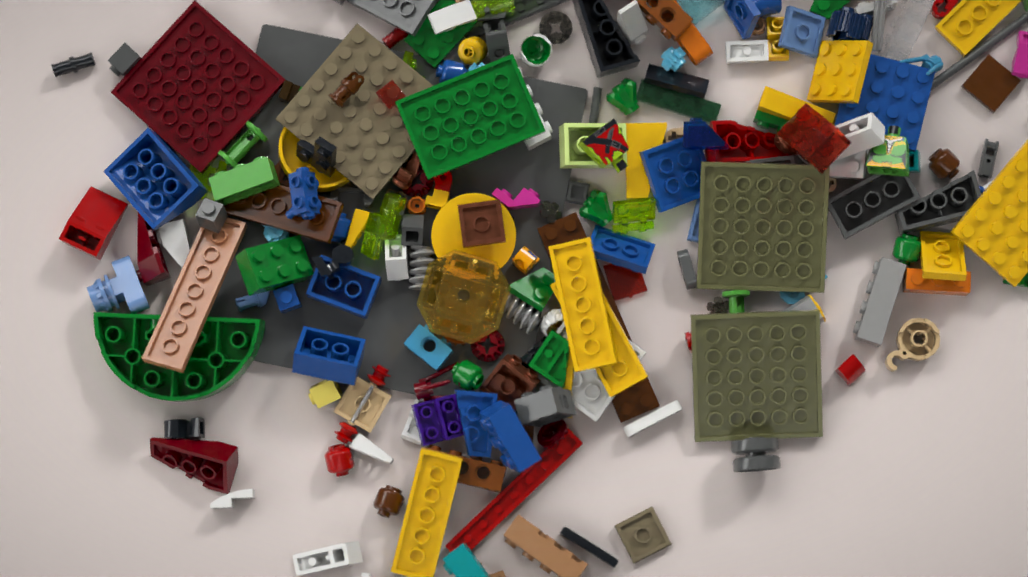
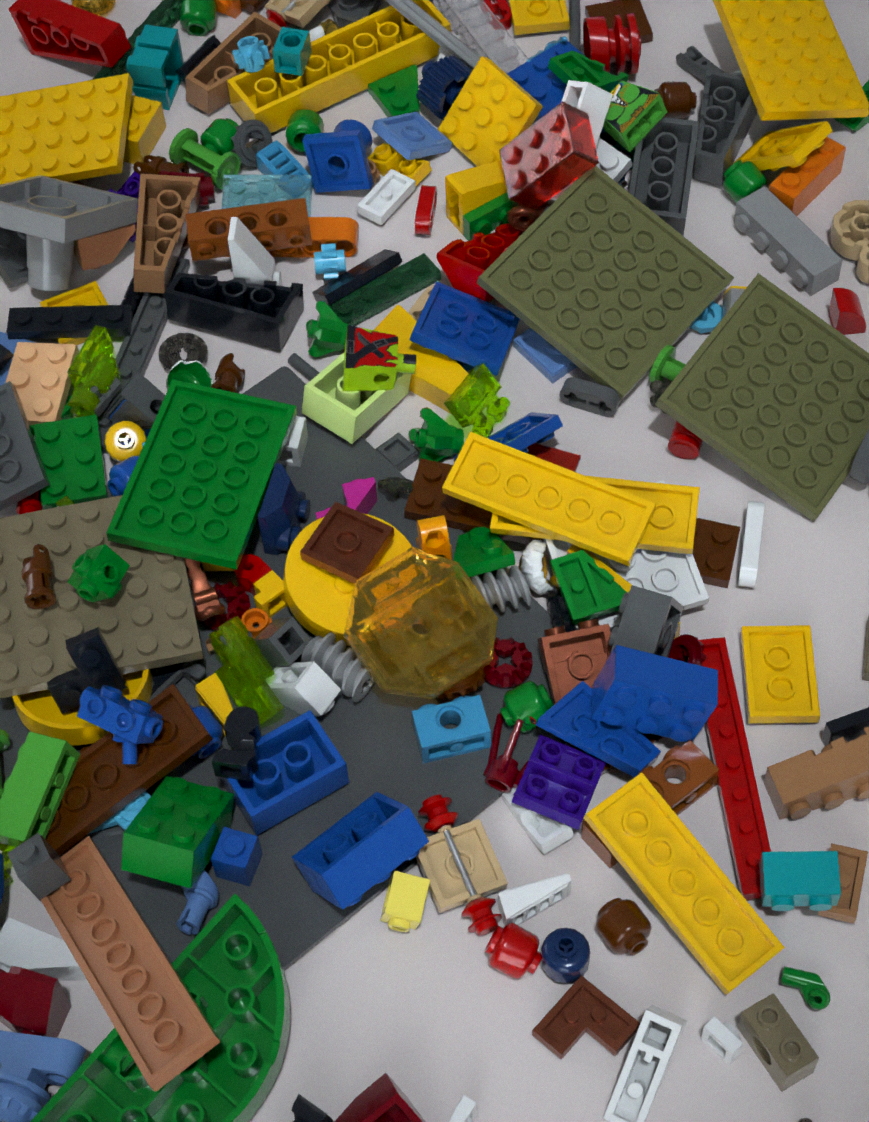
camera: 55 degrees left, 25 degrees down
(336, 513) = (582, 1011): none -> copper plate
(360, 487) = (565, 955): none -> dark blue head
(368, 118) = (98, 574): none -> green brick
(390, 94) = (90, 536): clear red tile -> none
(452, 16) = (65, 427): white slope -> none
(485, 170) = (281, 512): none -> dark blue slope
(553, 68) = (228, 375): none -> reddish brown piece
(583, 484) = (779, 674): none -> yellow plate
(700, 136) = (449, 264): clear blue slope -> none
(753, 82) = (426, 210): none -> red beam
(904, 108) = (579, 68): none -> green wing
(956, 98) = (615, 44): none -> red wheel

